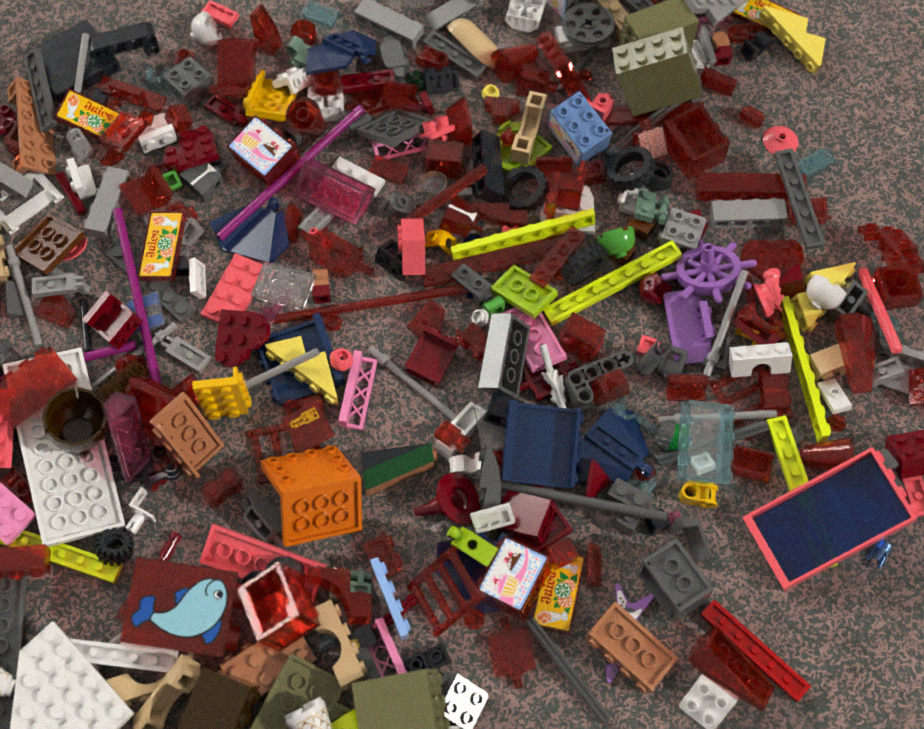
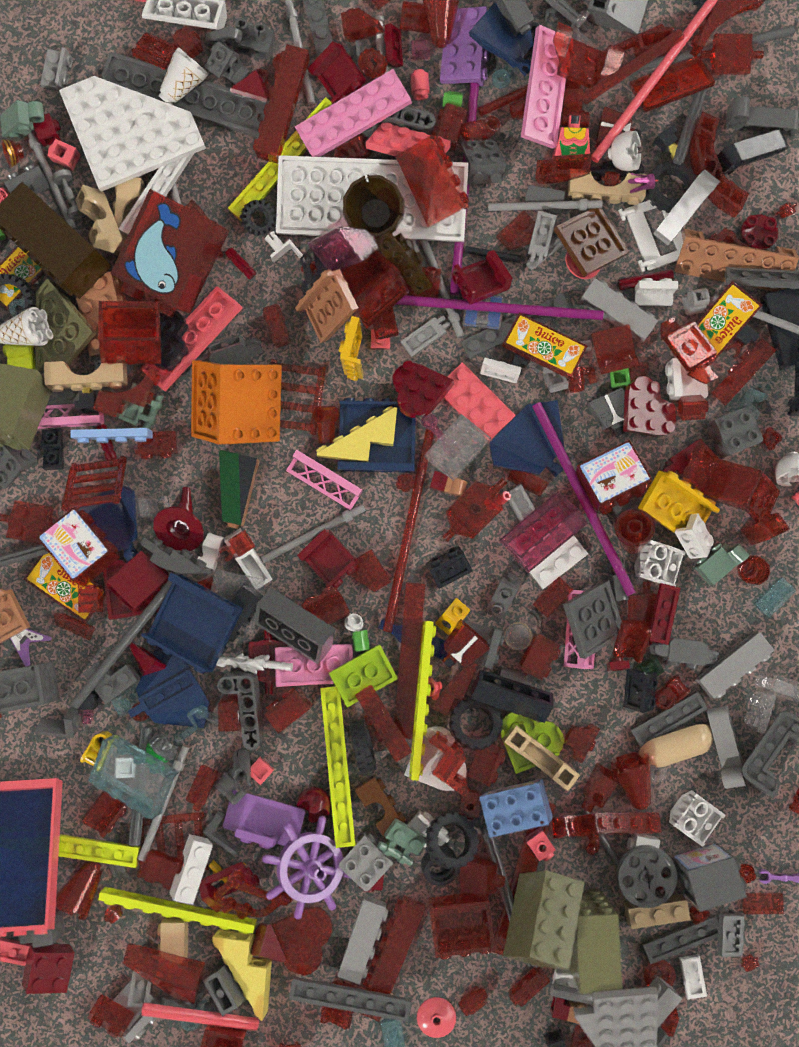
camera: 115 degrees right, 20 degrees up
(281, 368) = (368, 367): light grey bar -> none
(307, 427) = (301, 420): clear red tile -> none
(326, 83) = (679, 569): clear red bracket -> none
(338, 52) = (710, 600): dark blue panel -> none
(339, 364) = (355, 467): coral plate -> none
(412, 244) = (451, 586): coral wedge -> none
(438, 132) = (570, 660): coral hips -> none
(447, 194) = (489, 634): clear red axle -> none
(459, 115) = (577, 687): clear red slope -> none
(472, 545) = (116, 520): lime torso -> none
(474, 283) = (389, 628): dark grey bracket -> none
(490, 90) = (607, 737): light yellow plate -> none
(492, 518) = (141, 550): white plate -> none
(507, 137) = (539, 730): clear red plate -> none
(617, 241) = (371, 788): bright green cylinder -> none
(712, 357) = (215, 826): light grey bar -> none
(769, 292) = (257, 914): coral piece -> none
(823, 293) = (232, 968): white cylinder -> none
(834, 396) = (138, 925): white plate -> none

